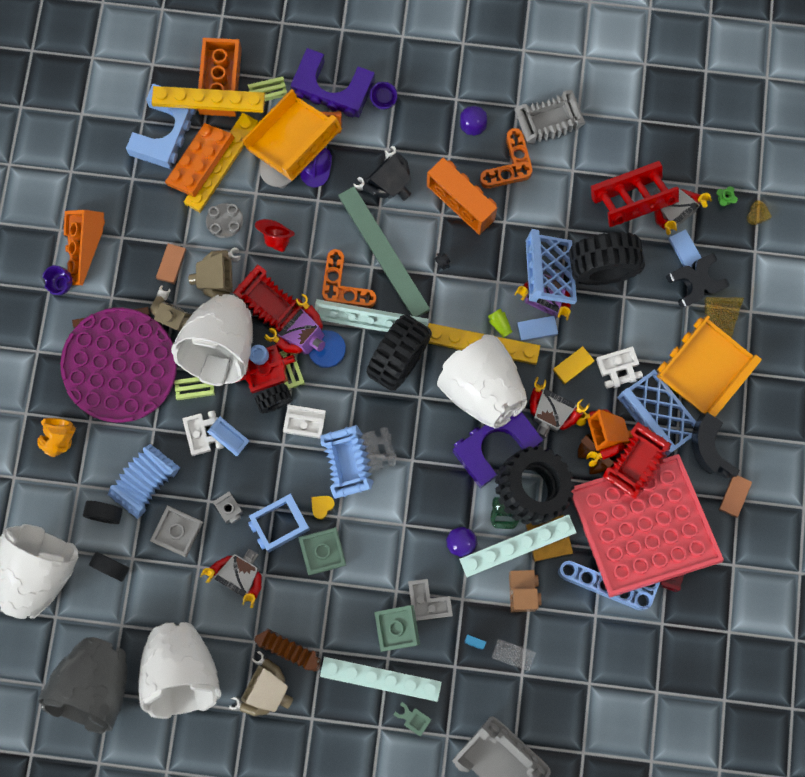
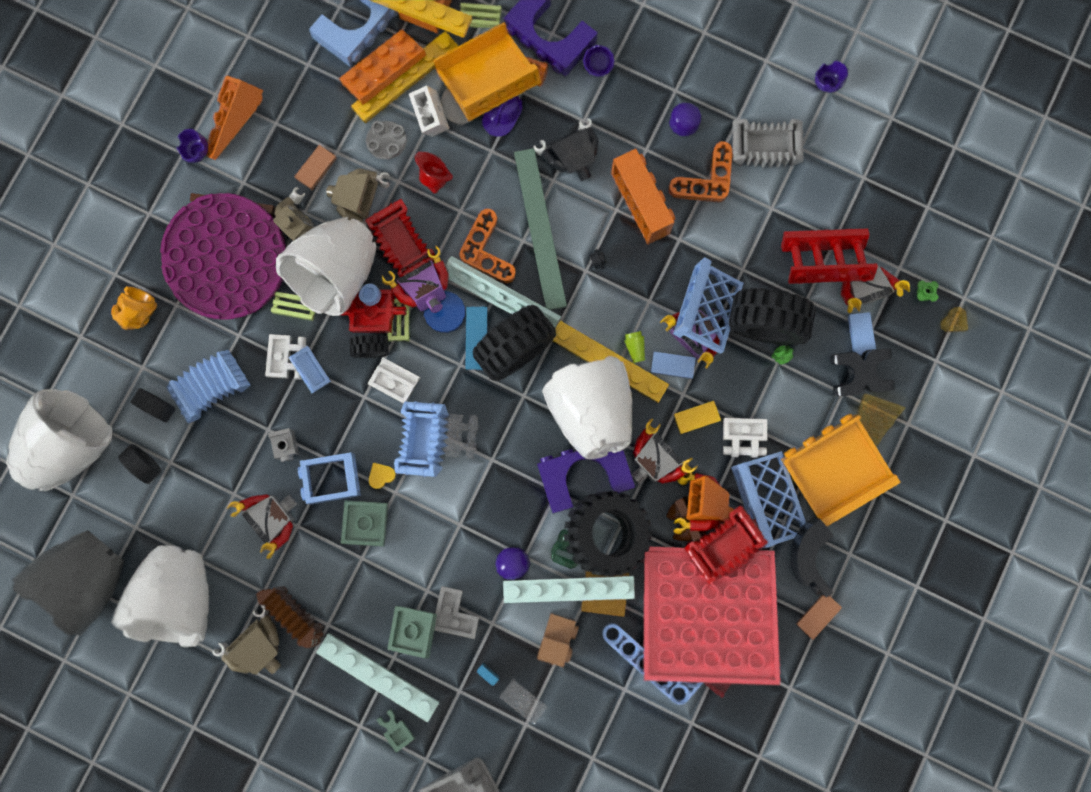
camera: 20 degrees right, 5 degrees up
(176, 531) = (223, 450): light grey plate -> none
(254, 184) = (429, 111): none -> white brick
(360, 358) = (475, 331): none -> dark azure tile
(583, 46) = (831, 77): none -> dark purple hair
(626, 288) = (783, 354): none -> bright green plate

